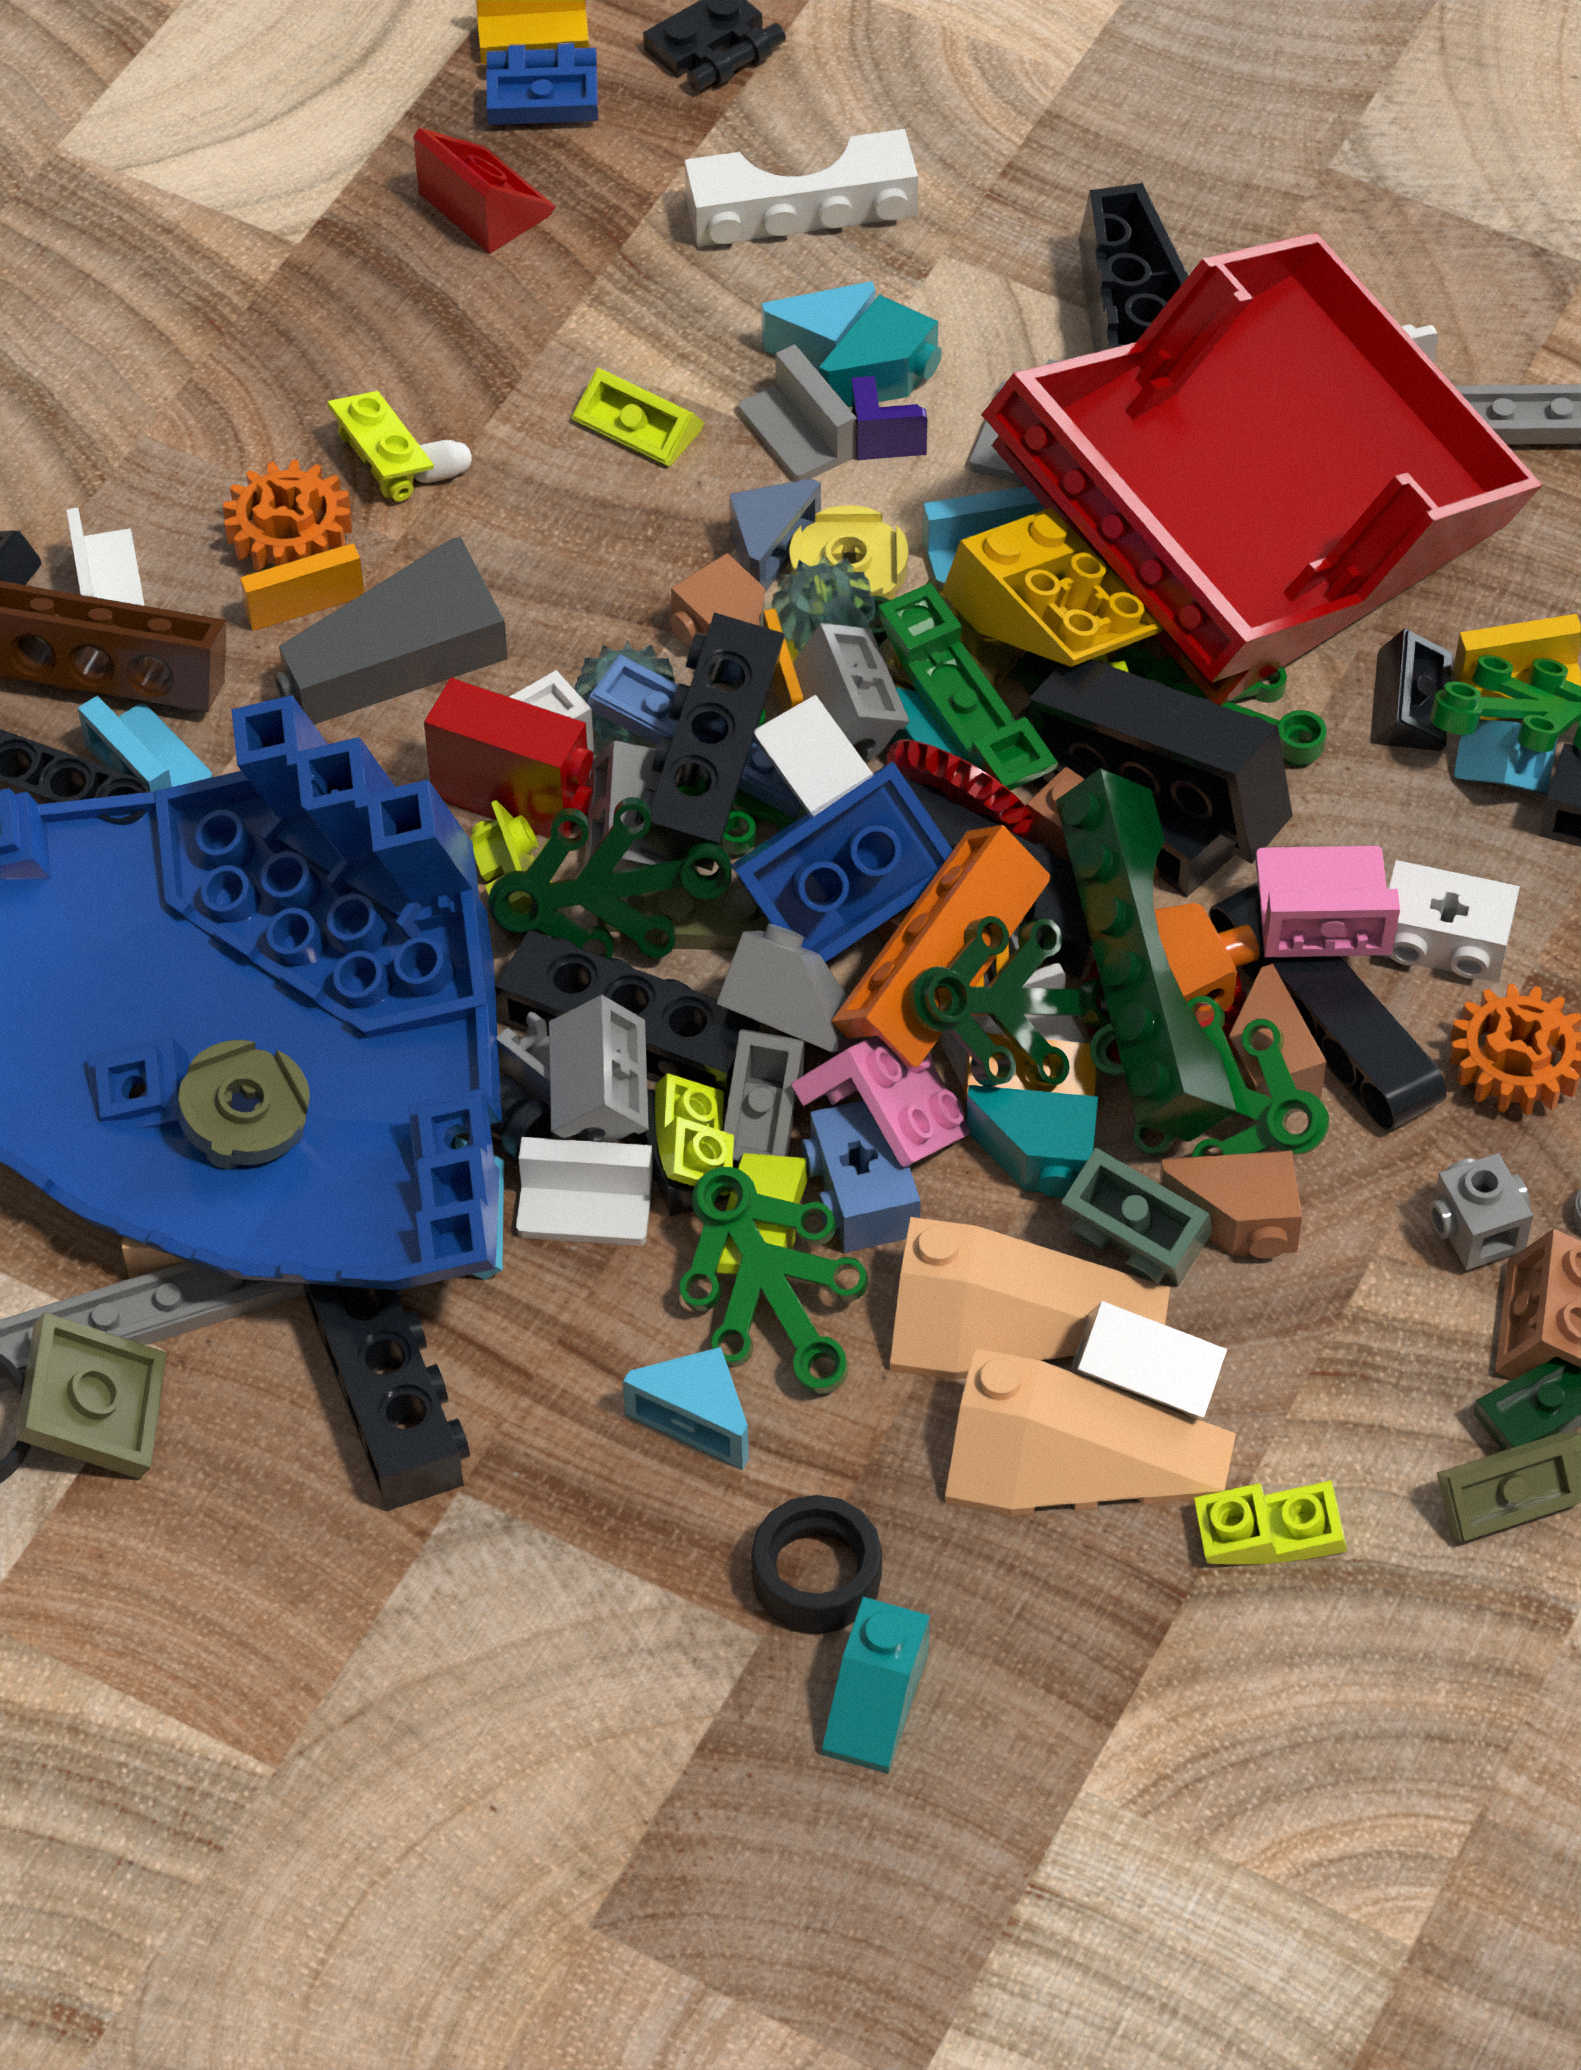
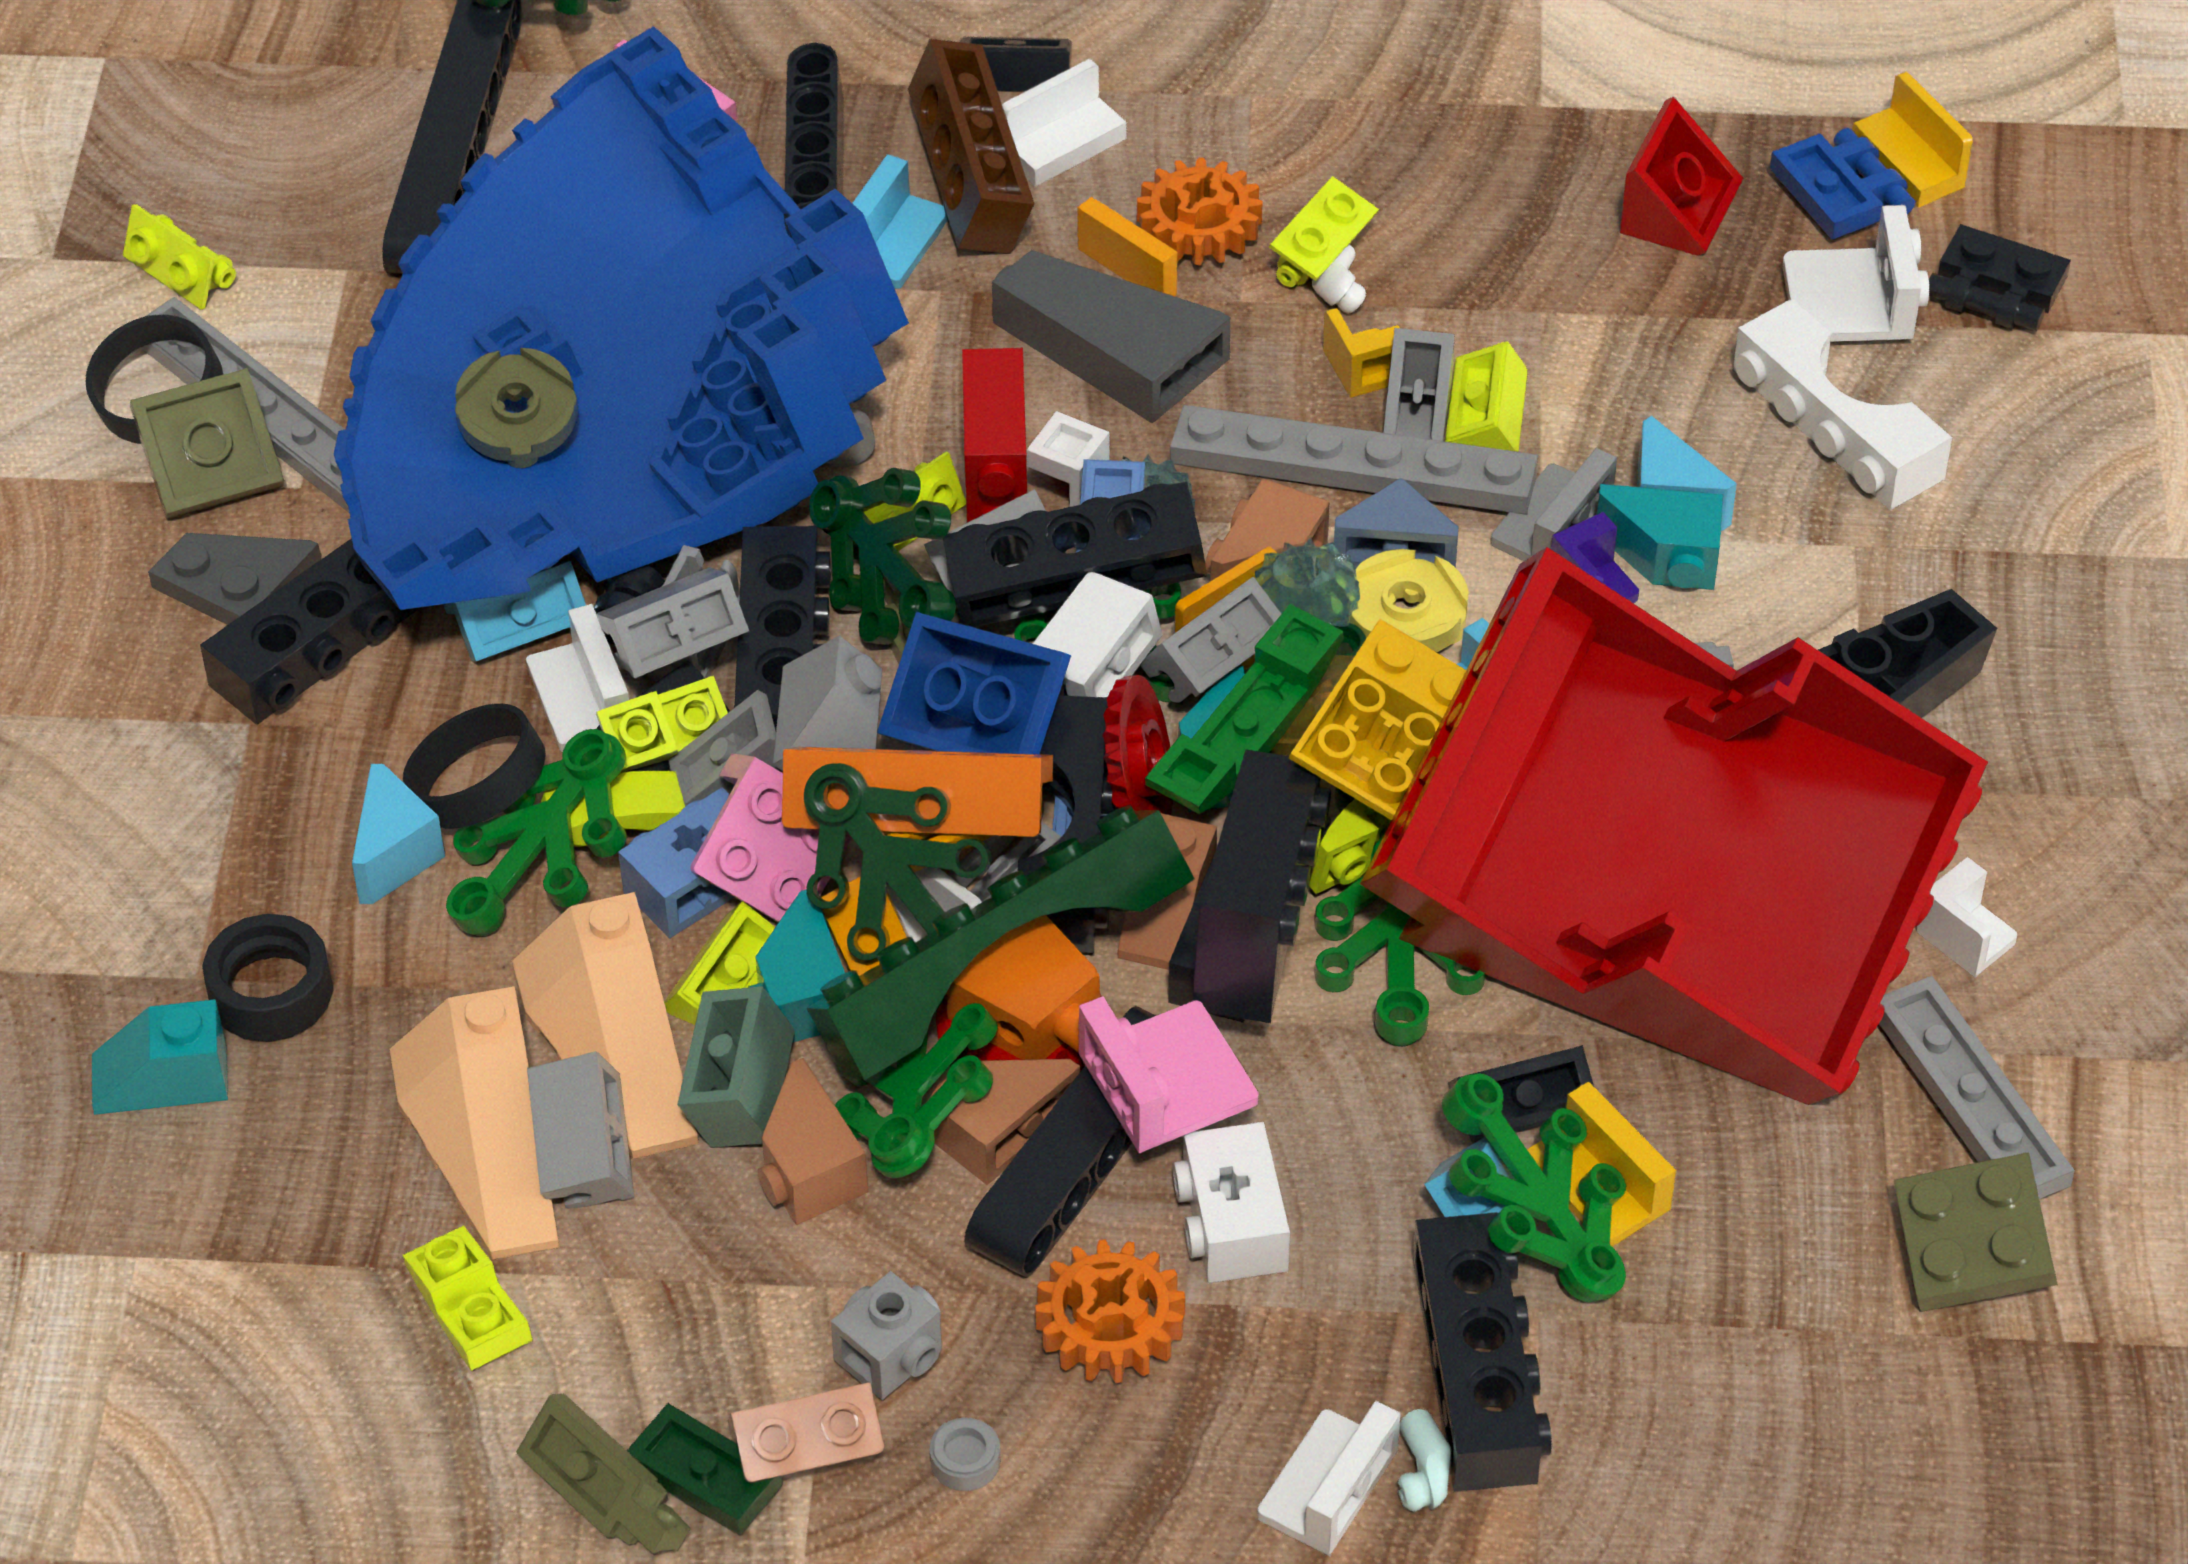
camera: 65 degrees right, 5 degrees down
(260, 1441) = (230, 572): none -> dark grey wing
(536, 480) = (1358, 358): none -> yellow panel
(616, 451) = (1419, 384): none -> light grey slope
(623, 1253) = (460, 735): none -> black tyre
(652, 532) = (1353, 458): none -> light grey plate
(678, 113) = (1864, 289): none -> white bracket
(981, 1191) = (723, 961): none -> neon yellow slope

